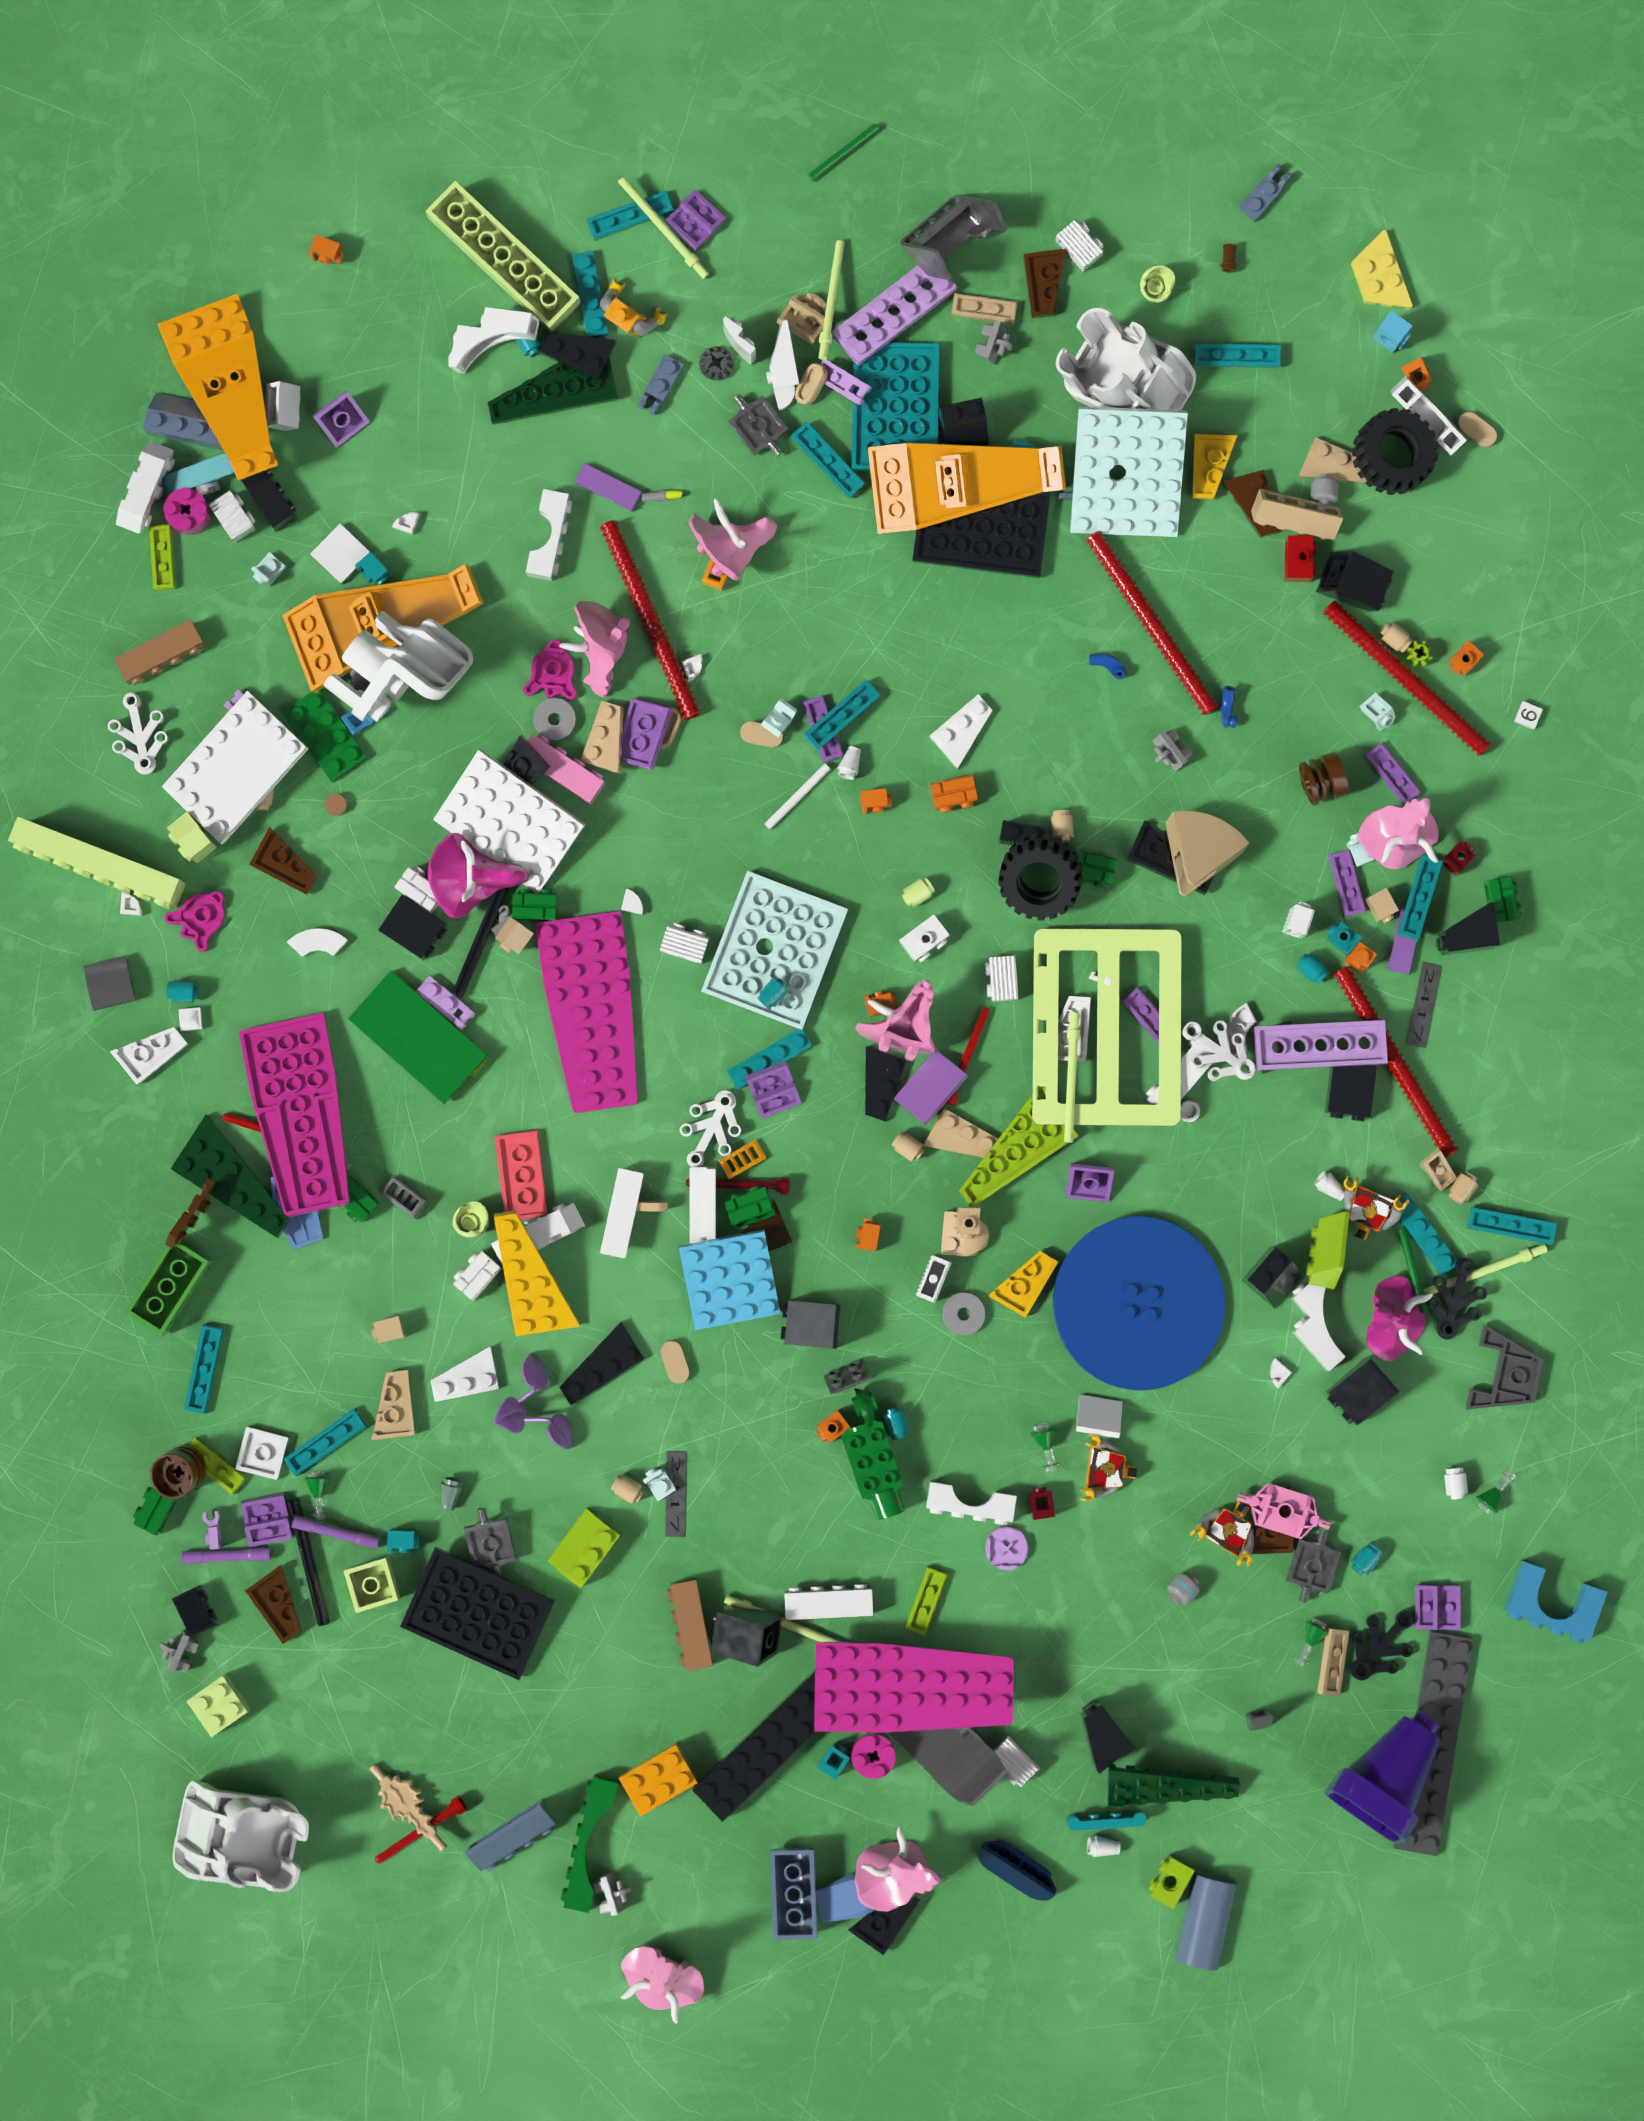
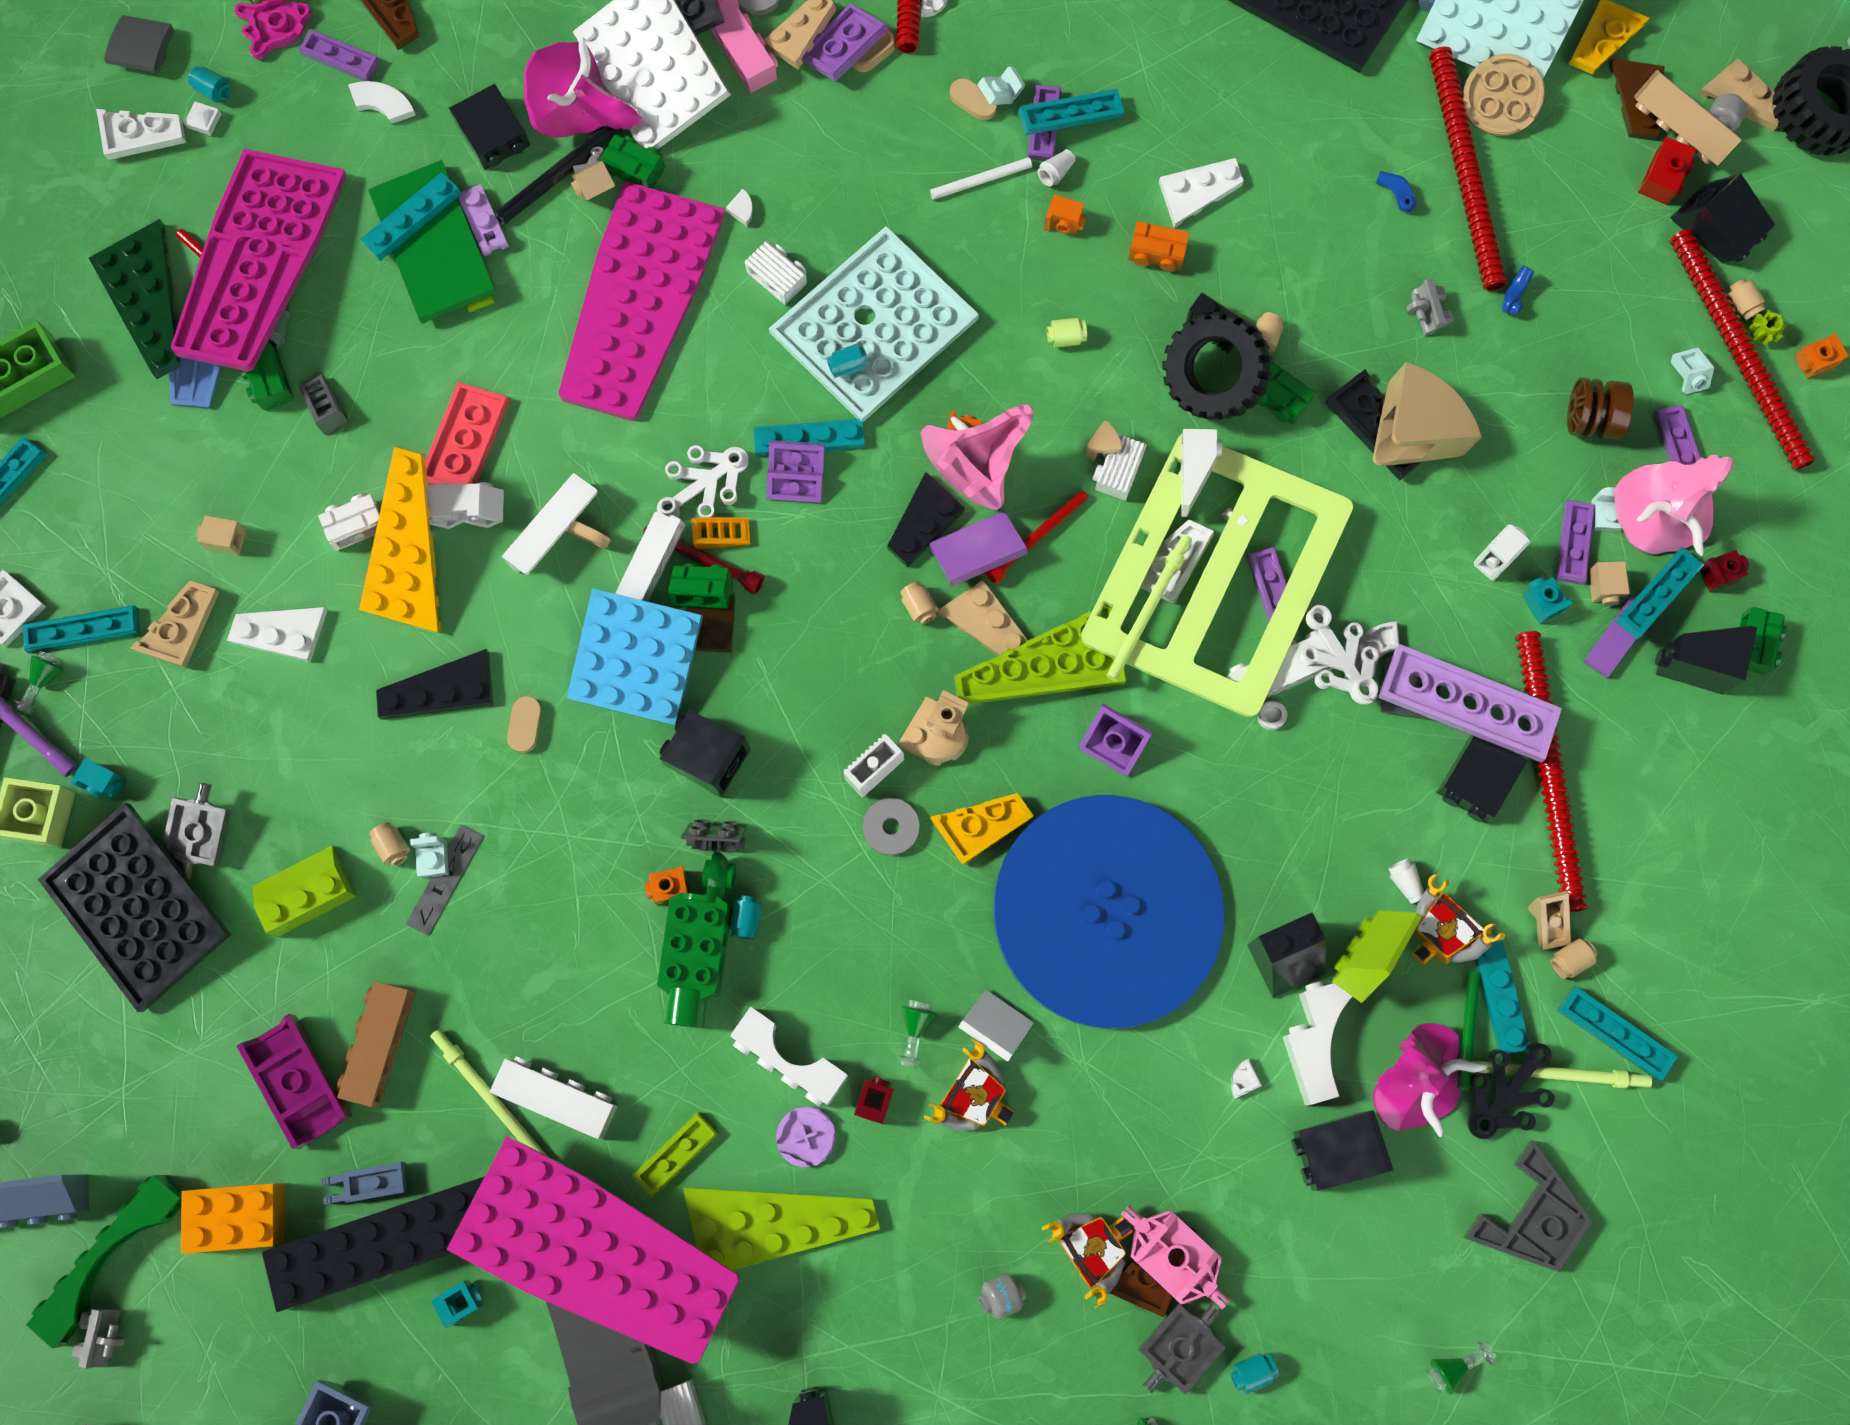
camera: 30 degrees right, 10 degrees down
(199, 1204) = (81, 304): reddish brown wing -> none
(264, 920) = (339, 55): none -> medium lavender tile
(394, 1027) = (411, 216): none -> teal plate
(417, 888) = (511, 85): white brick -> none
(450, 1492) = (186, 750): sand green cone -> none
(471, 1219) = (376, 454): yellowish green hair -> none
(512, 1413) = (291, 687): medium lavender plant -> none
(650, 1674) = (294, 1082): none -> magenta piece
(734, 1715) = (369, 1183): none -> sand blue hinge
(746, 1634) = (434, 1088): black slope -> none
(868, 1235) = (822, 682): orange brick -> none
(885, 1751) = (492, 1316): dark pink brick -> none
(924, 939) = (1050, 384): white brick -> none
(984, 967) = (1103, 441): none -> tan tile
(1005, 1619) = (762, 1226): none -> lime wing
(1056, 950) = (1198, 459): none -> white slope
(1154, 552) = (1503, 95): none -> tan tile
(1312, 968) = (1493, 616): teal brick -> none
(1360, 957) = (1558, 629): orange brick -> none
(1424, 1004) = (1611, 722): flat silver sticker -> none
(1456, 1483) = (1413, 1328): white brick -> none

